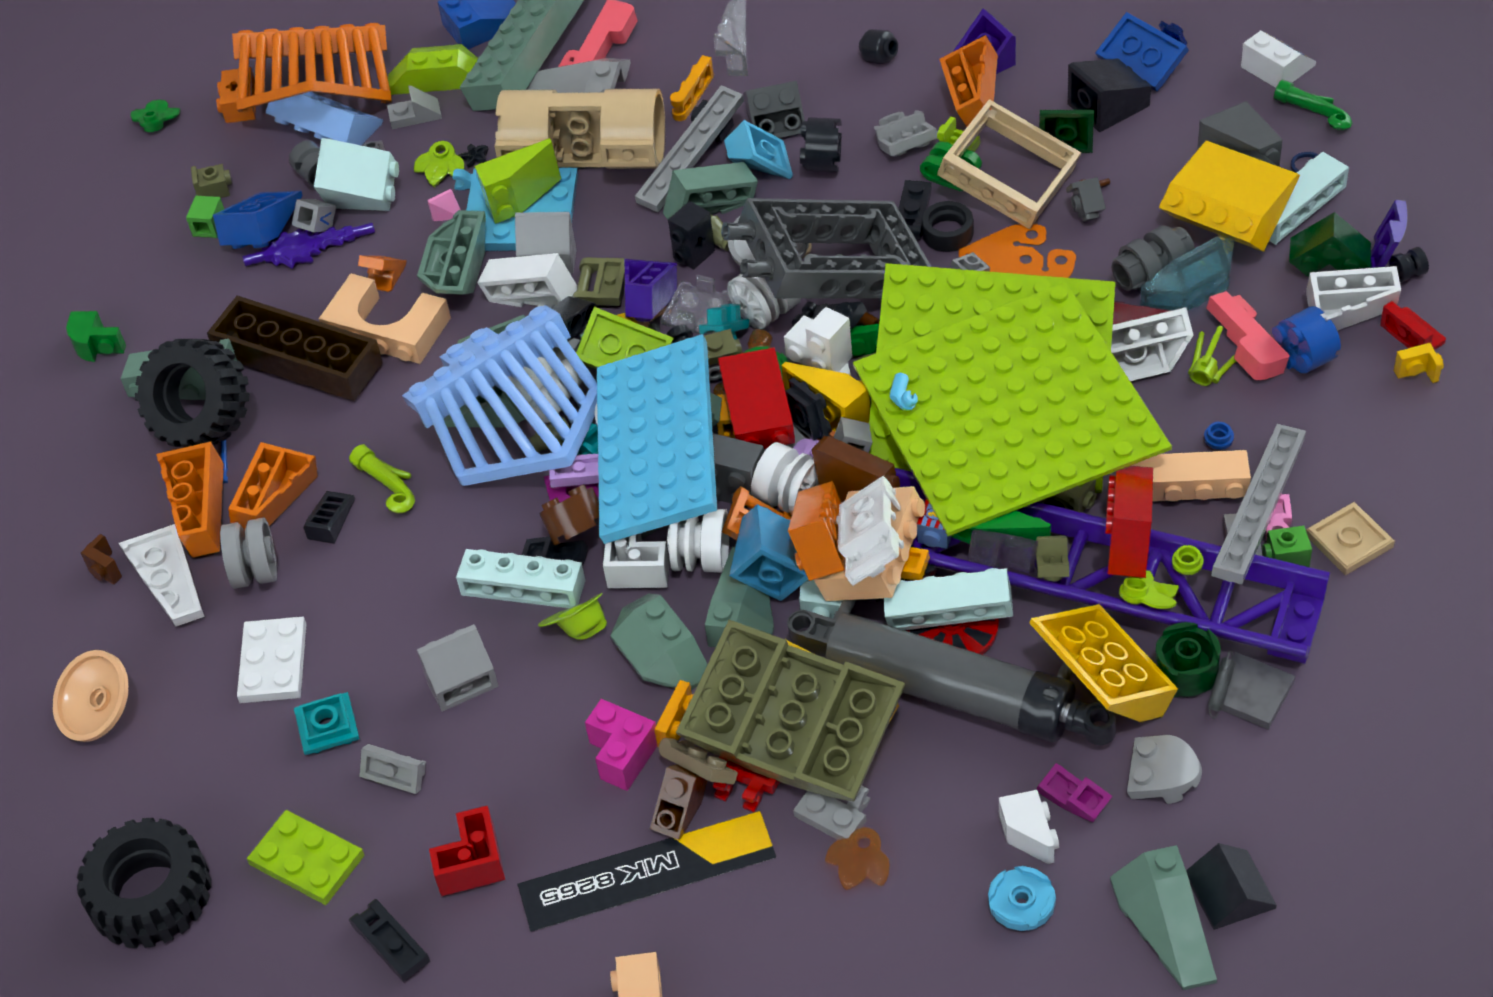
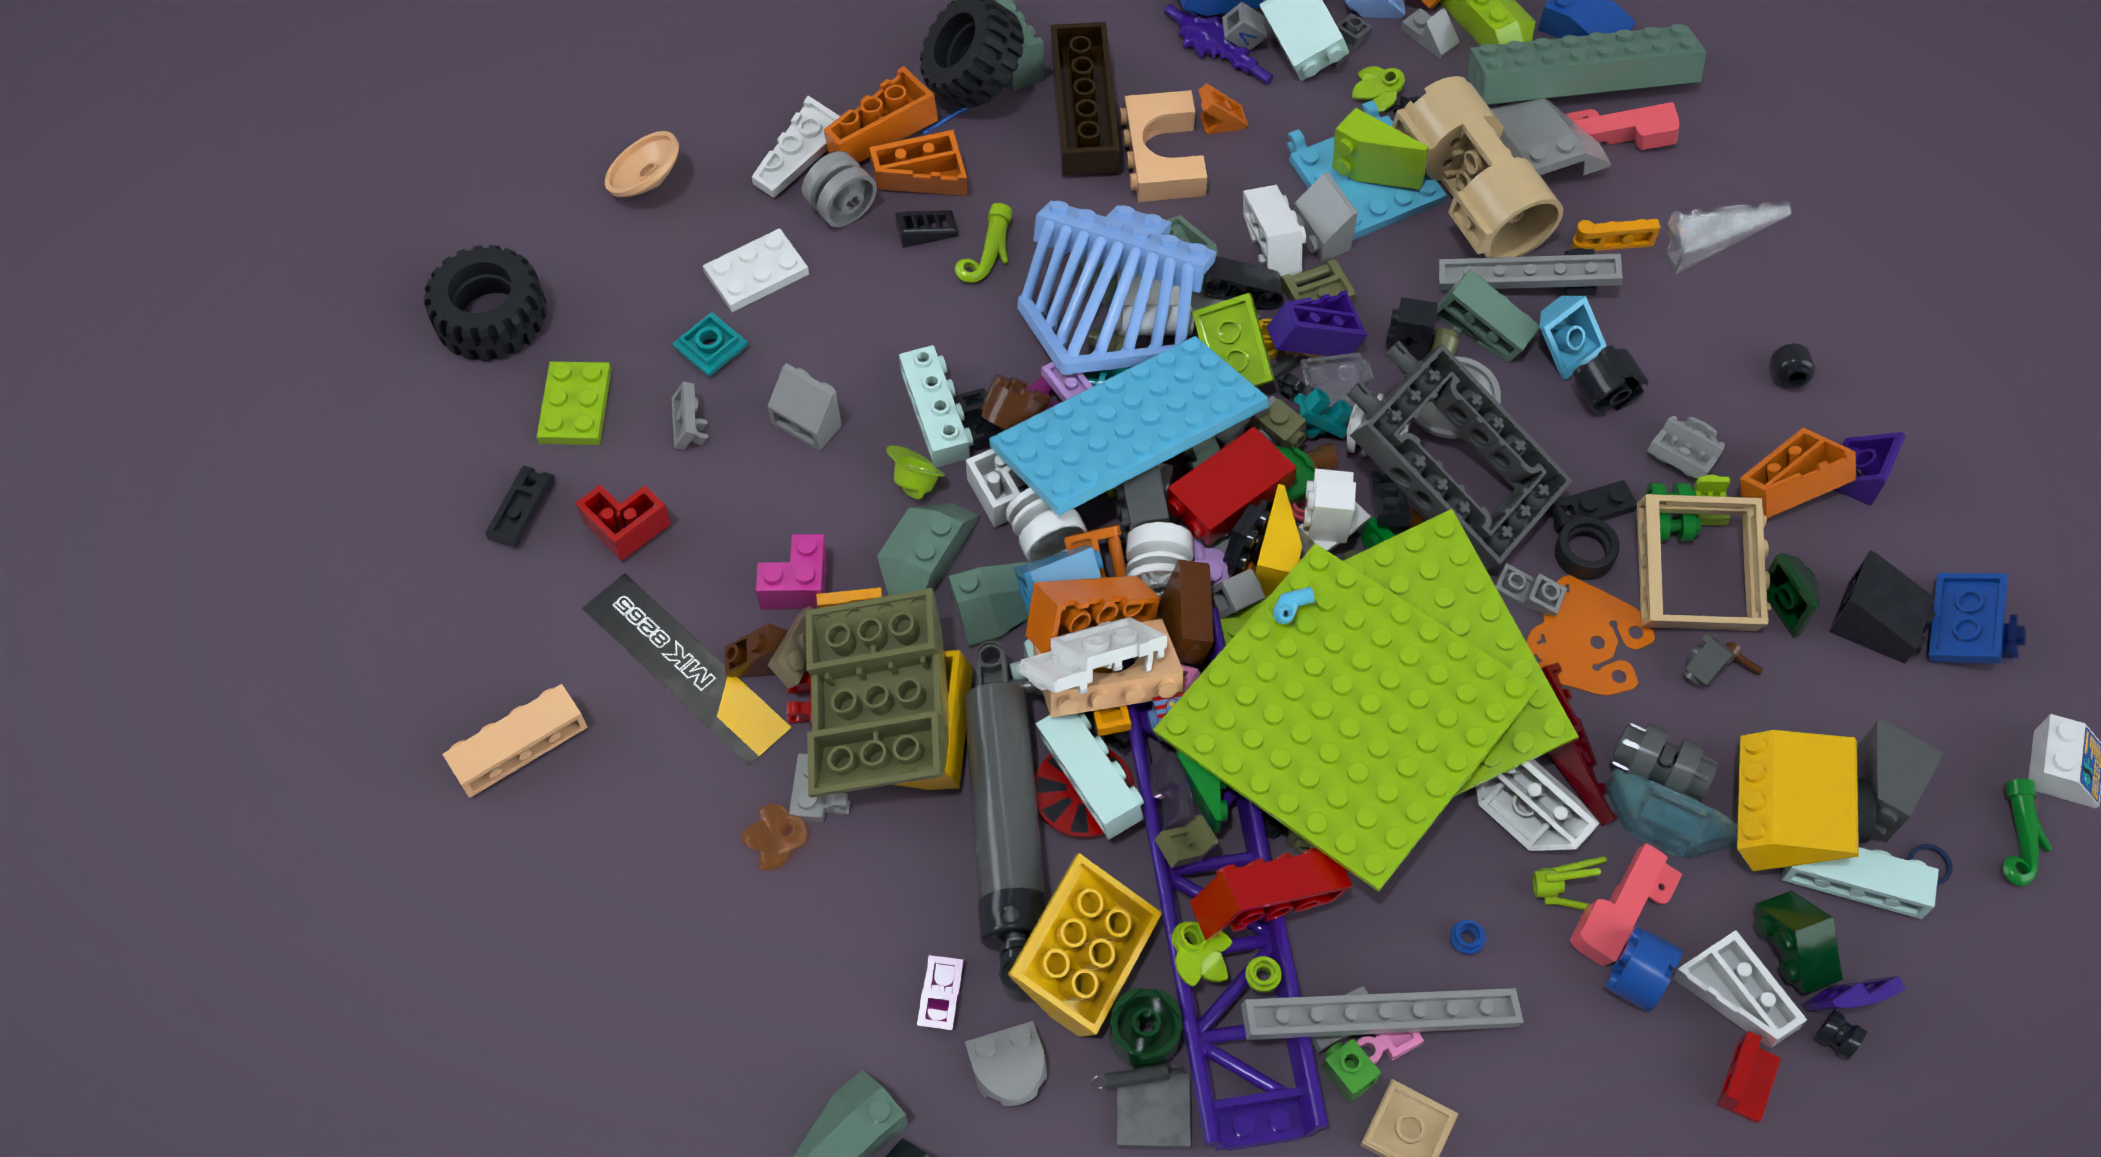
camera: 55 degrees right, 10 degrees up
(98, 560) = (786, 88): reddish brown bracket -> none
(443, 206) = (1326, 118): bright pink slope -> none
(455, 254) = (1263, 157): sand green wedge -> none
(776, 109) = (1636, 319): dark grey slope -> none
(1021, 884) = (793, 981): medium azure plate -> none
(1026, 825) = (878, 965): white slope -> none
(1199, 475) = (1390, 937): light nougat brick -> none
(1418, 360) = (1700, 1100): yellow bracket -> none

